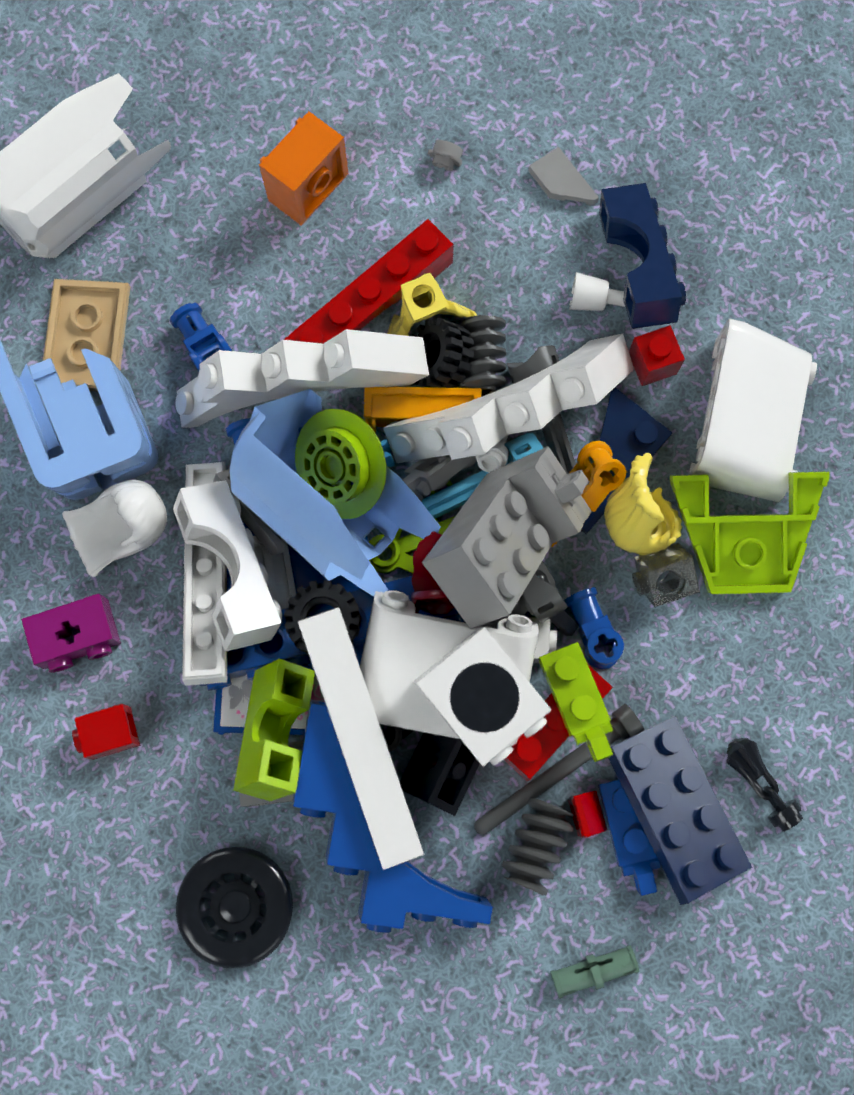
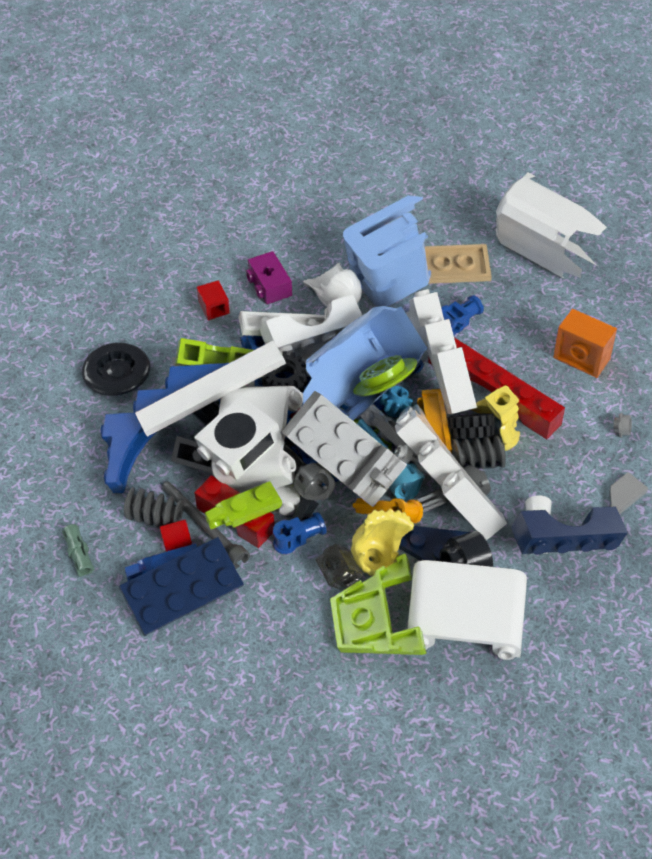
camera: 85 degrees right, 25 degrees down
(656, 355) = (502, 549): red brick -> none
(671, 397) = (467, 549): none -> black piece
(746, 759) = (215, 628): black piece -> none

